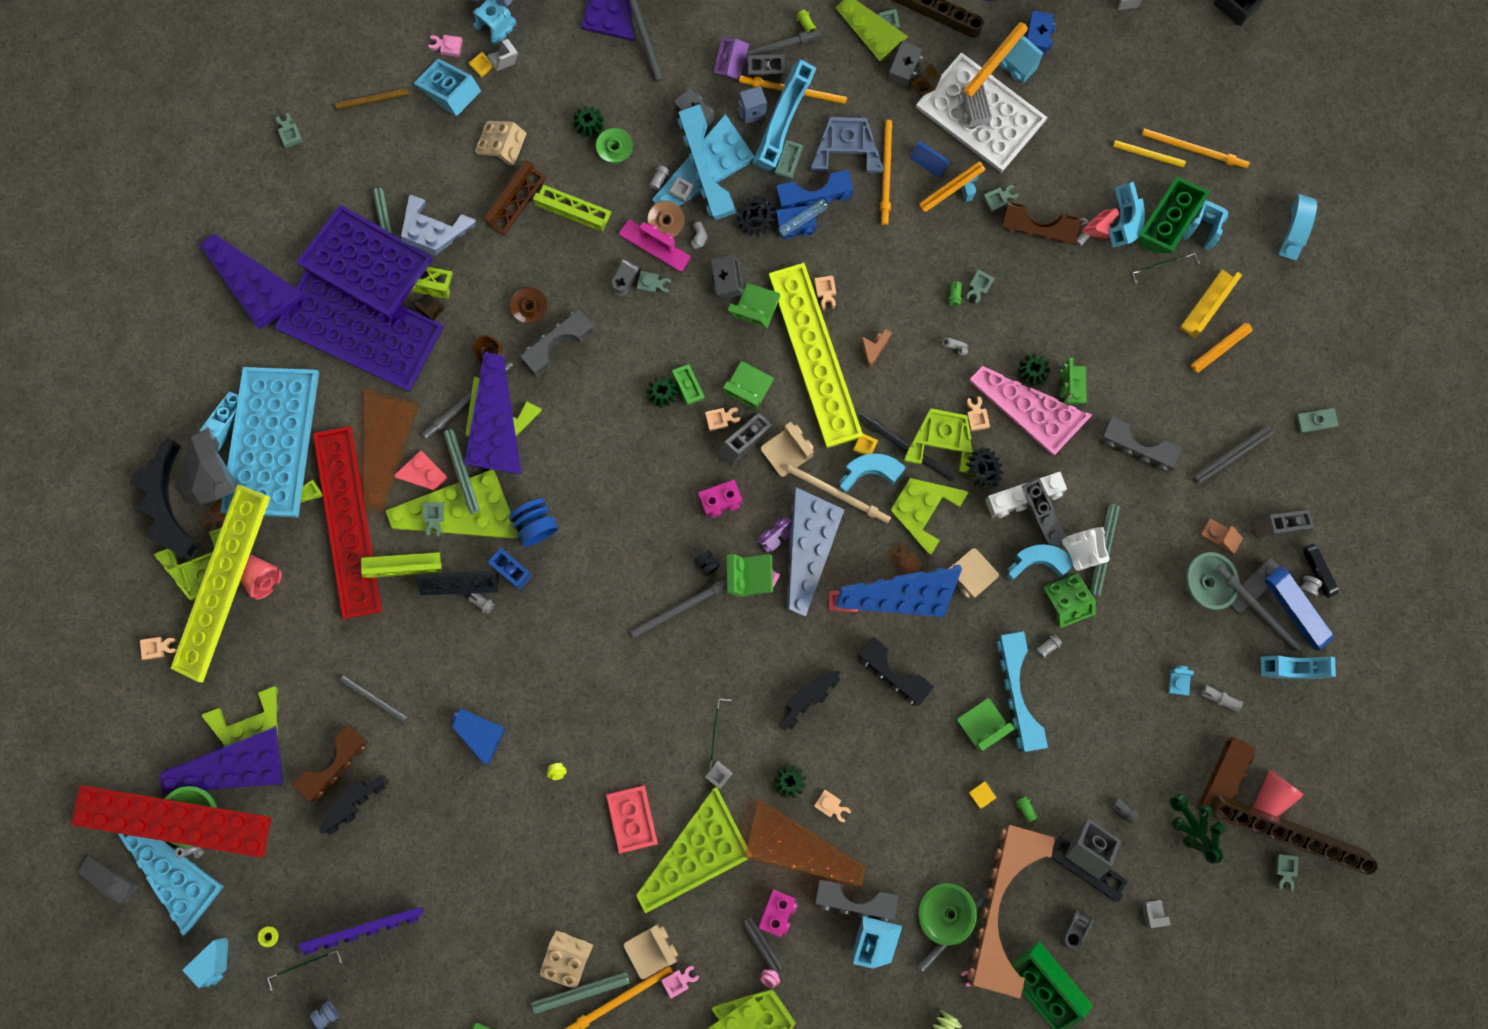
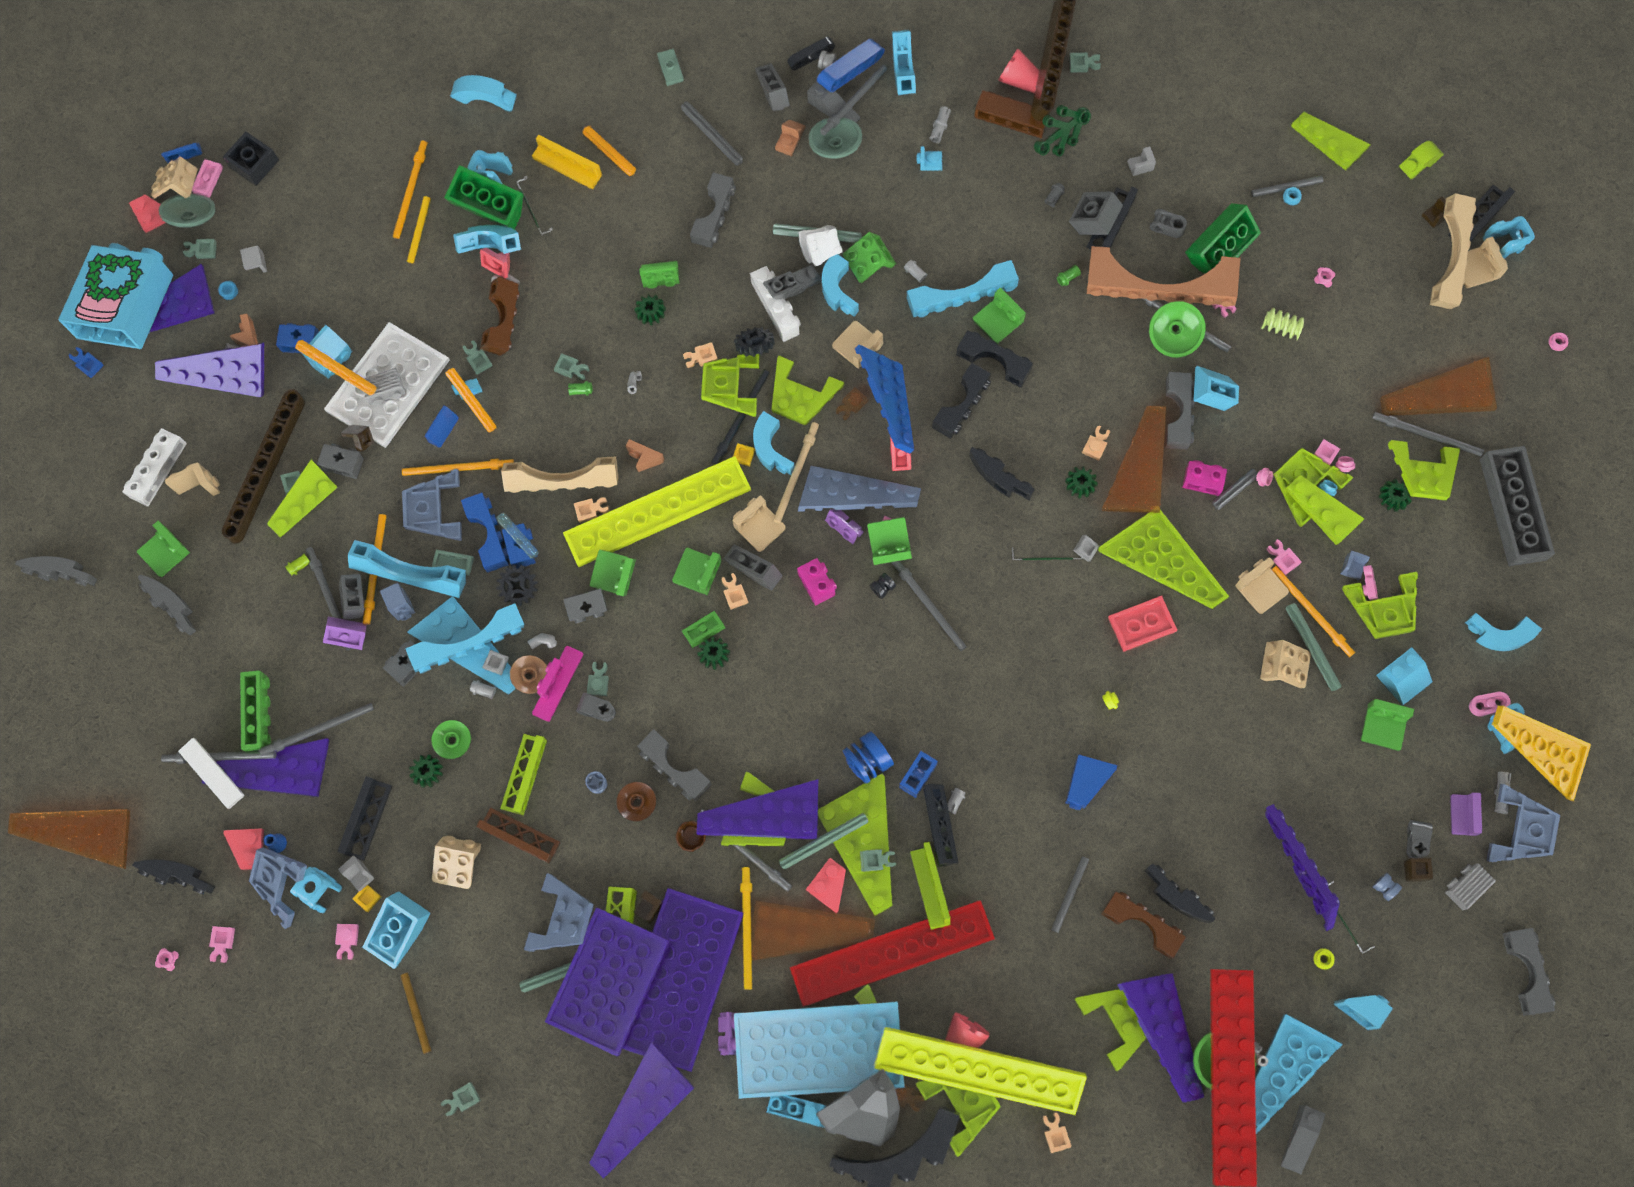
camera: 90 degrees left, 5 degrees down
(295, 362) = (726, 1024): none -> medium lavender hinge
(431, 396) = (746, 889): none -> yellow bar
(552, 266) = (593, 780): none -> sand blue wheel
(553, 59) = (357, 817): none -> black fence
(865, 230) = (522, 477): none -> tan arch
(953, 694) = (974, 347): none -> black arch
(982, 795) = (1062, 314): yellow tile -> none
(1037, 413) = (692, 303): bright pink wing -> none

